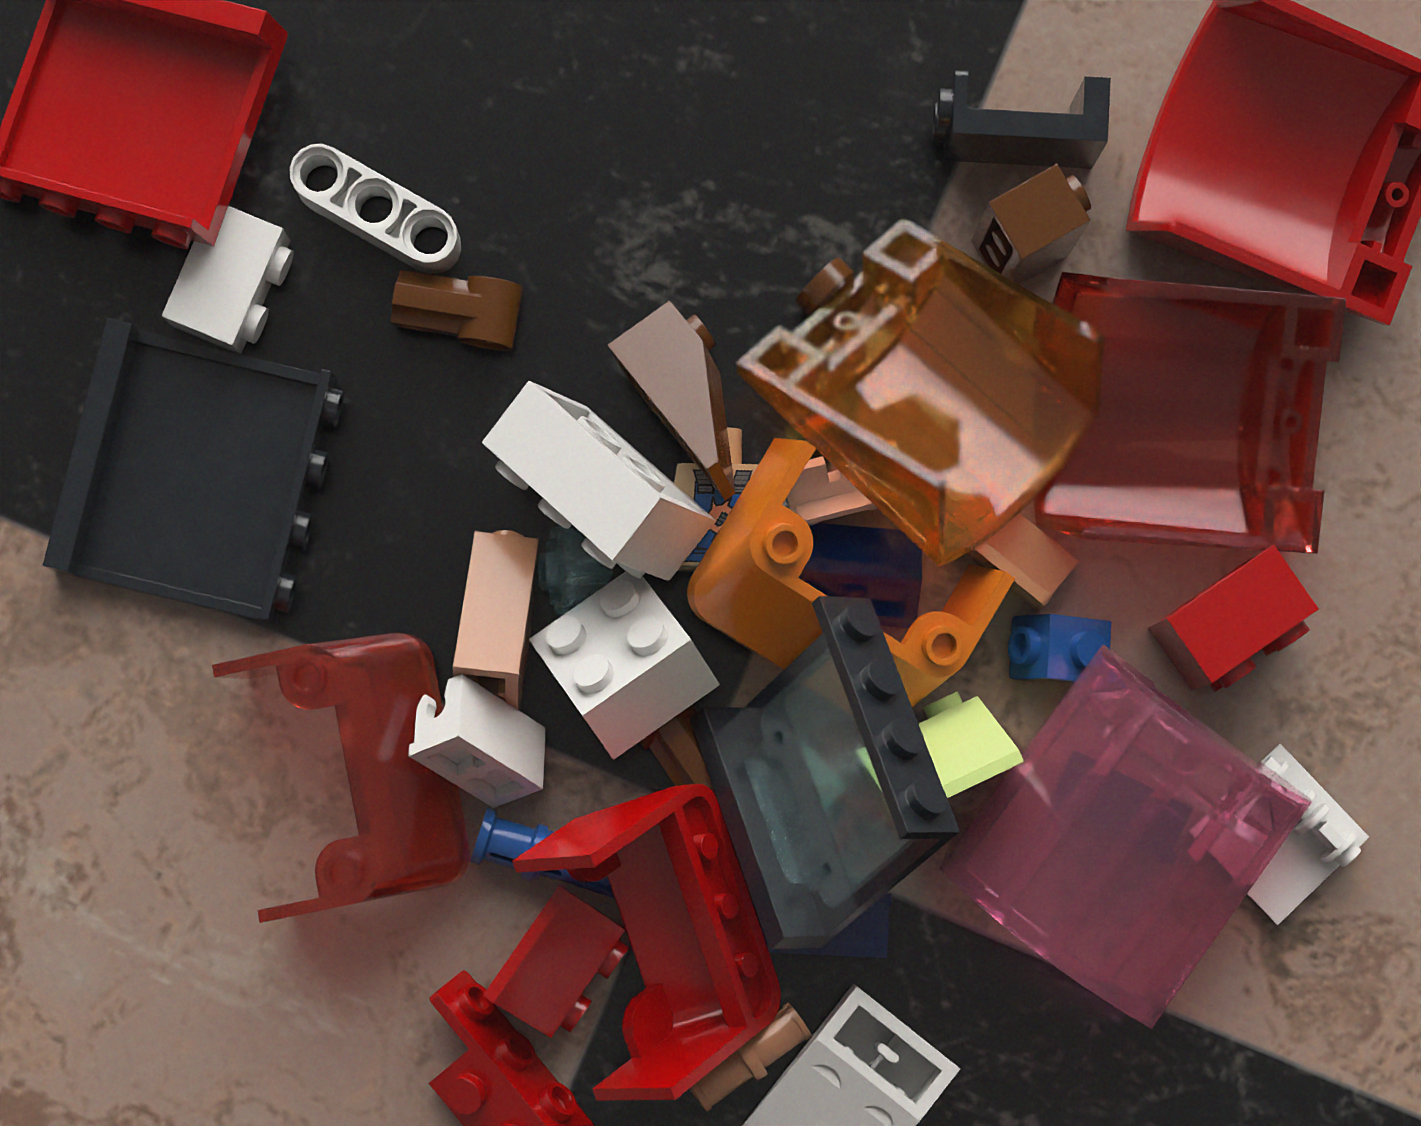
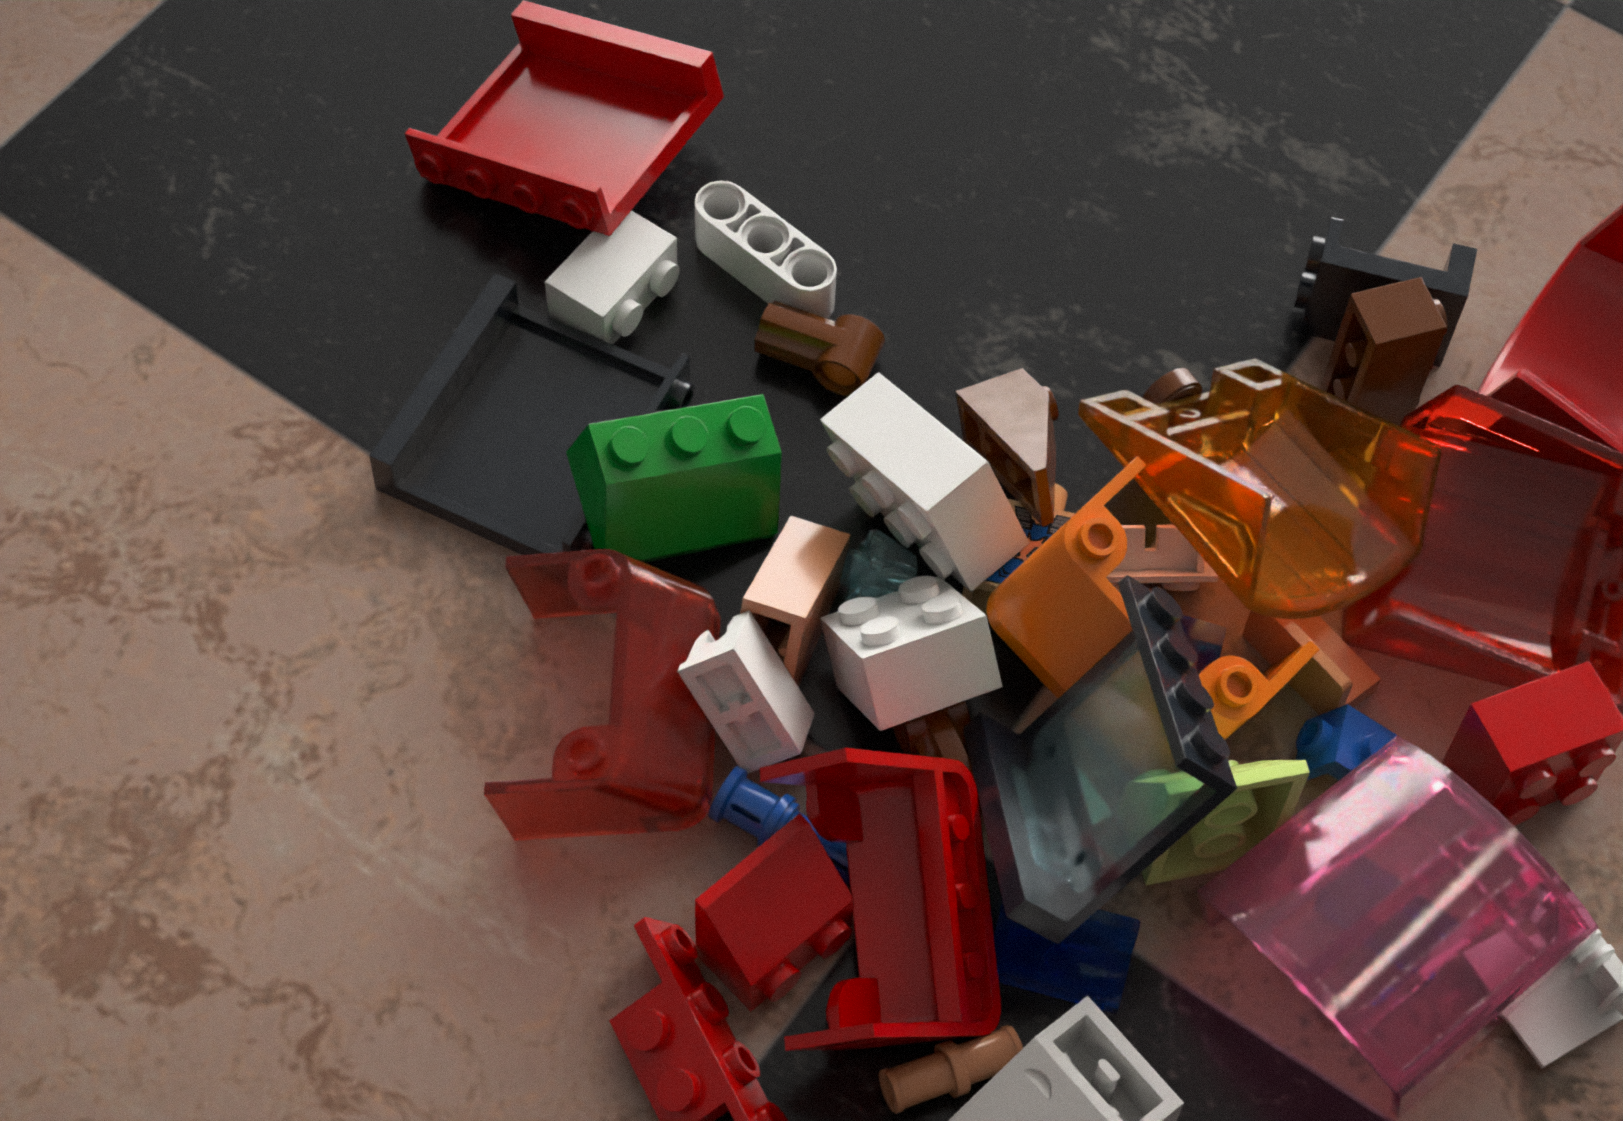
camera: 15 degrees right, 25 degrees down
(356, 524) = (680, 479): none -> green slope

